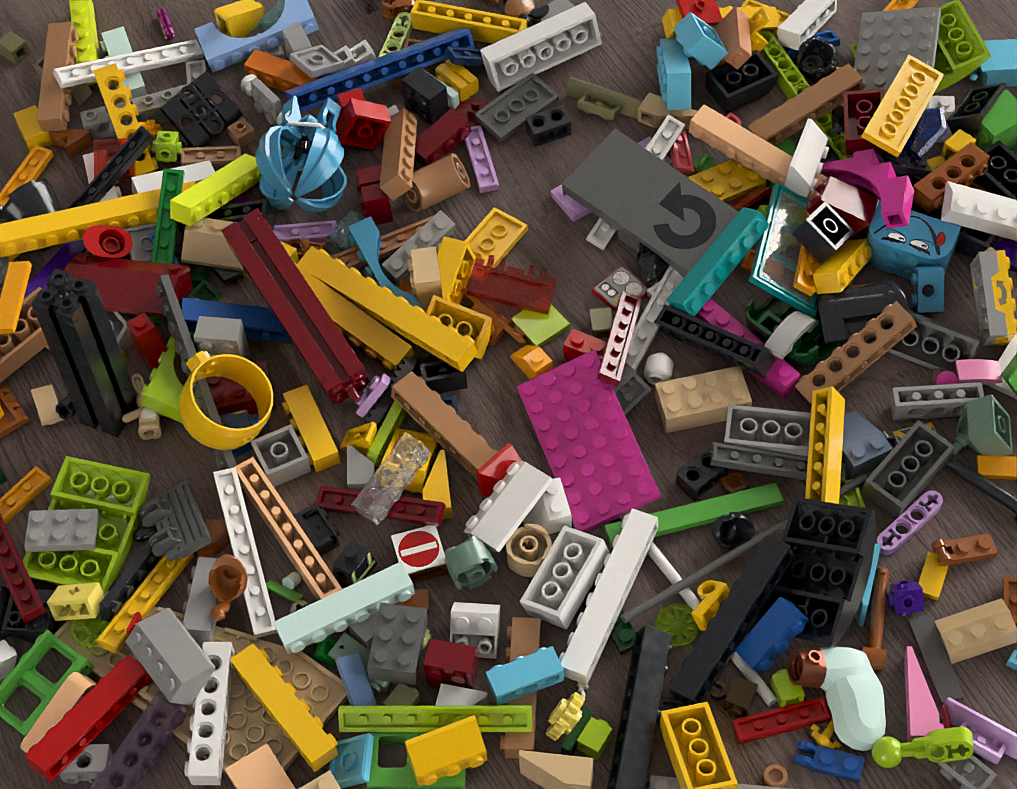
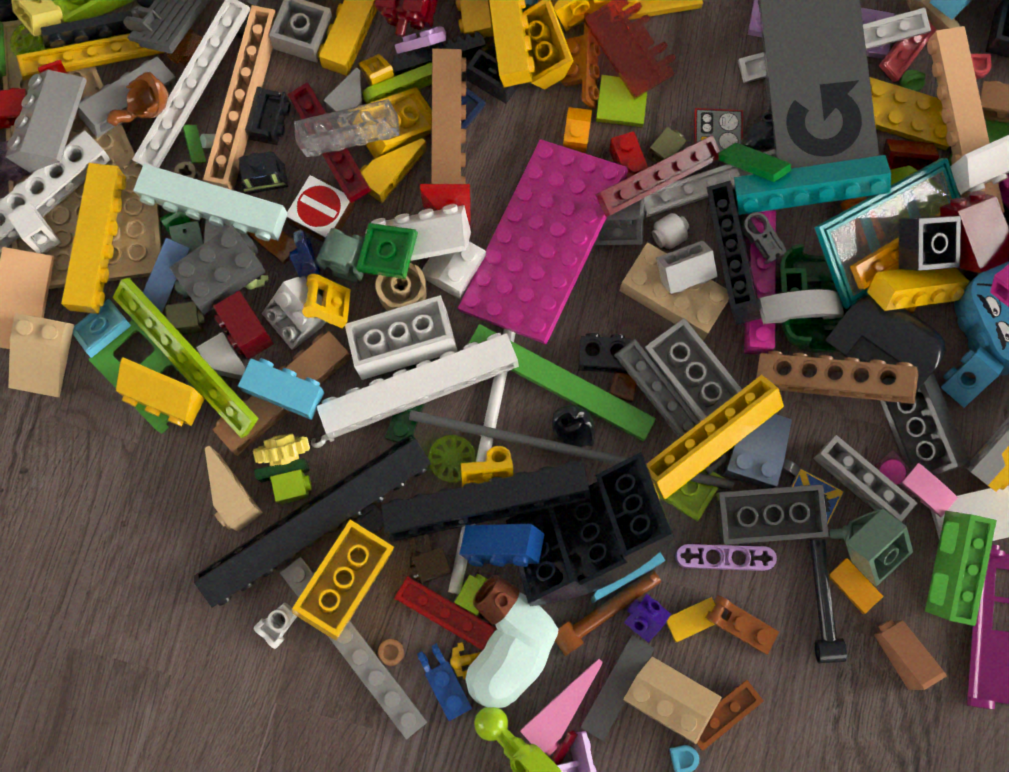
camera: 40 degrees right, 20 degrees up
(237, 732) = (33, 228): none -> white slope
(444, 587) = (303, 255): none -> clear blue plate
(491, 598) = (334, 302): none -> yellow plate
(501, 528) = (387, 250): none -> green tile
(668, 280) = (755, 162): none -> green tile
(699, 370) = (687, 267): none -> light grey brick
(727, 316) = (767, 241): none -> dark grey piece

